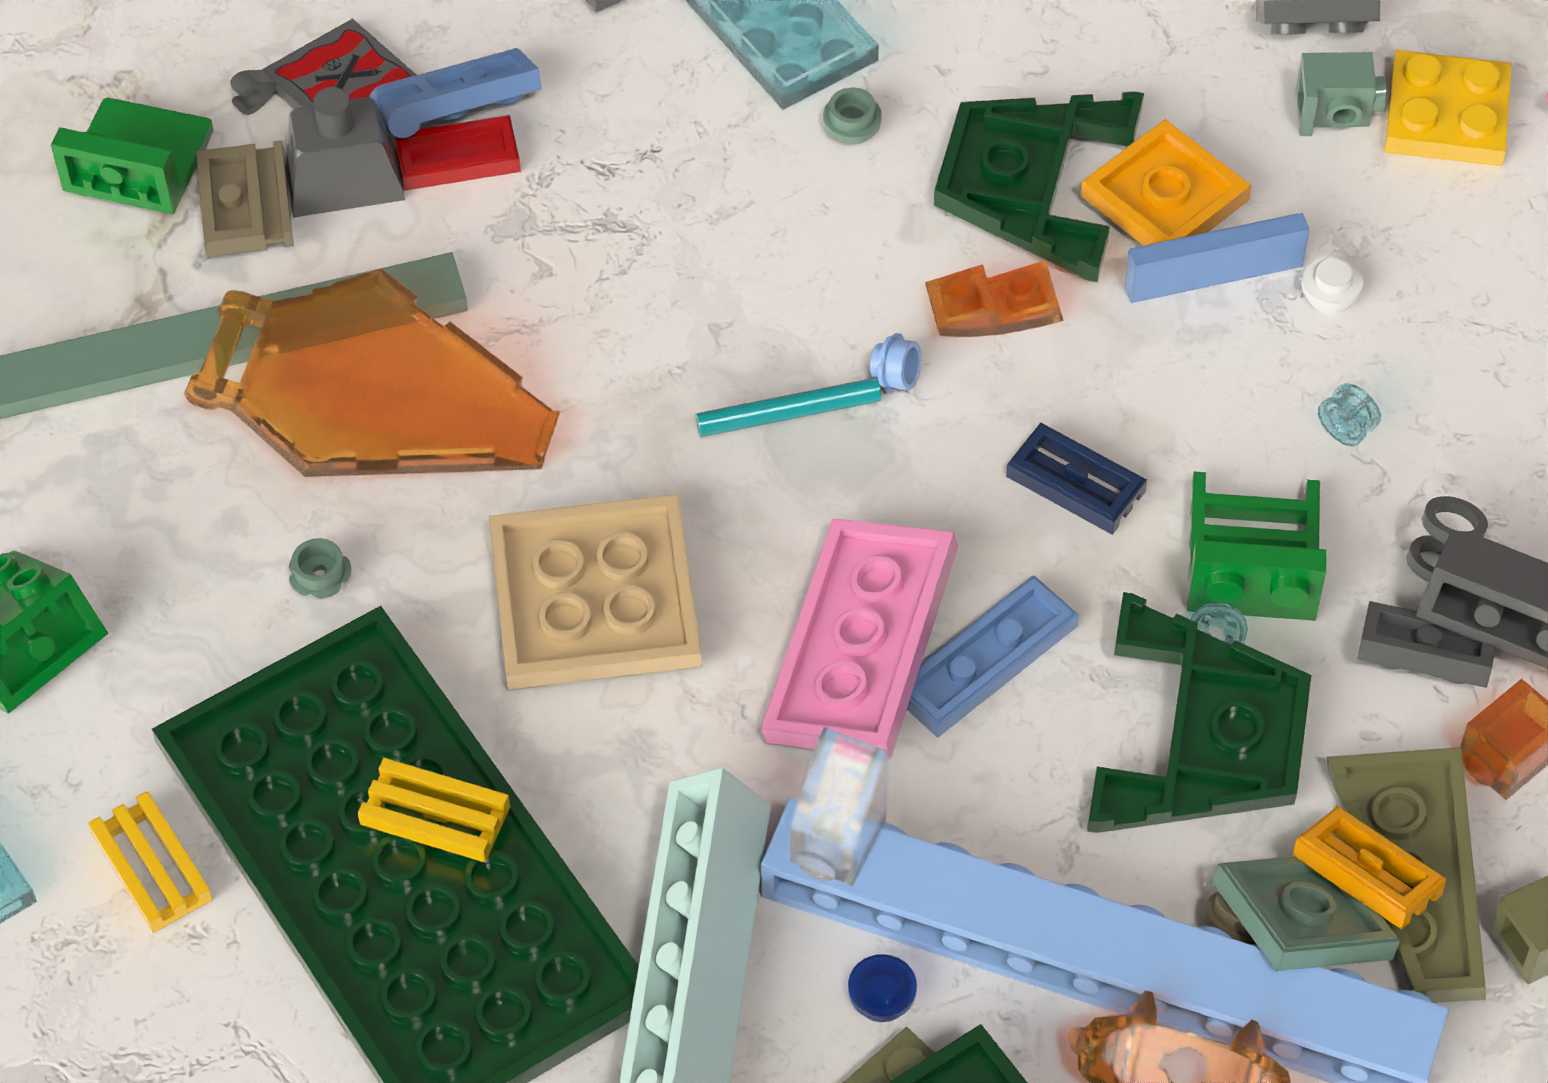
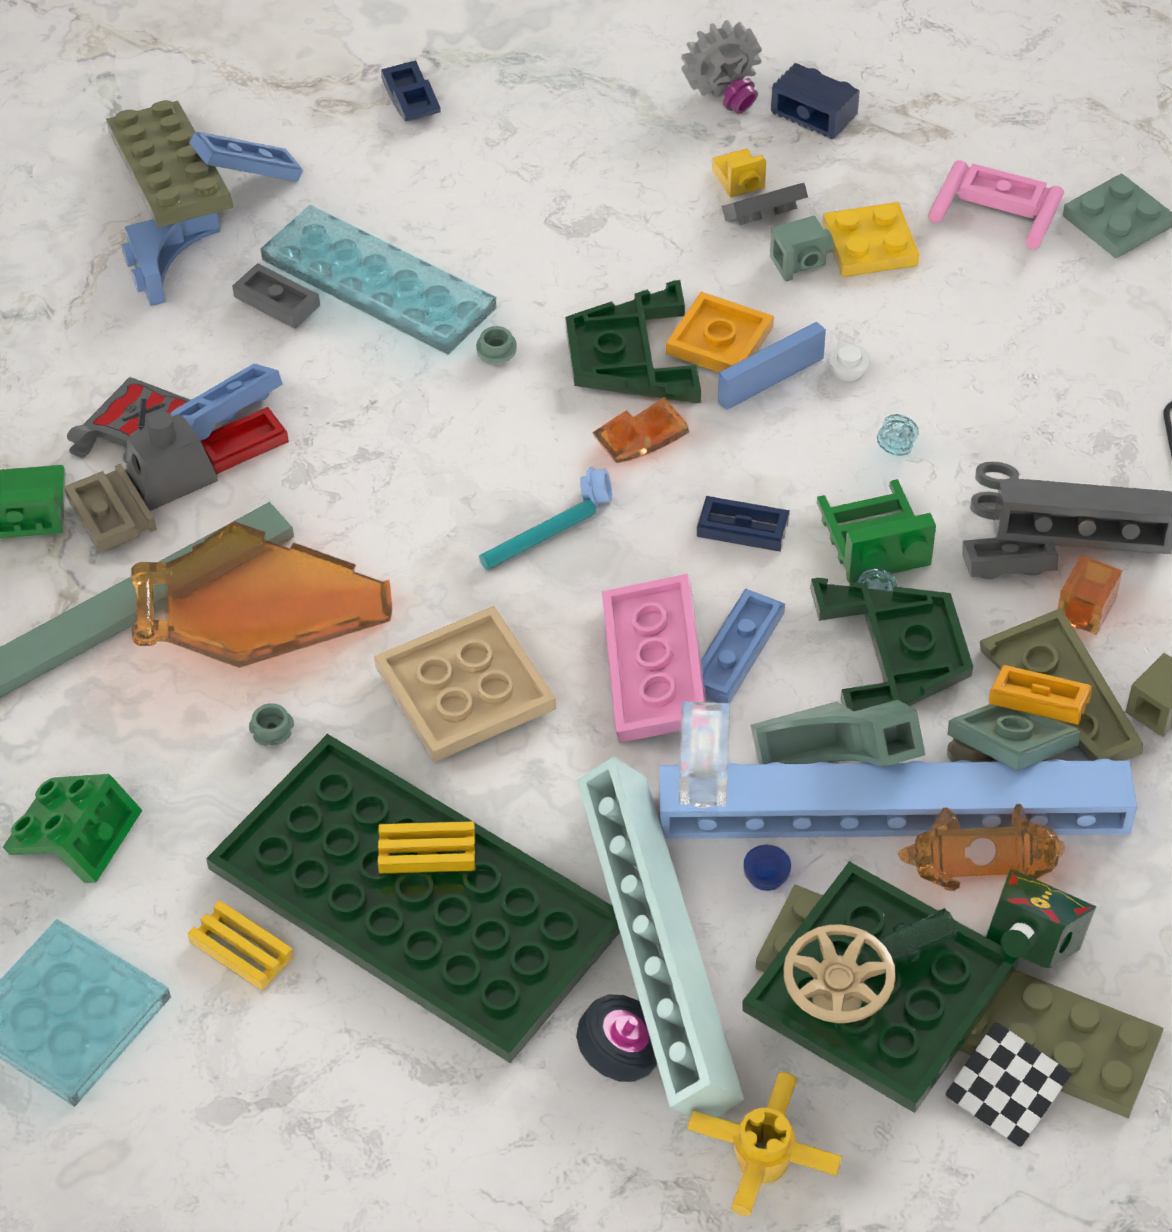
camera: 20 degrees left, 5 degrees down
(1042, 824) = (836, 733): none -> sand green arch

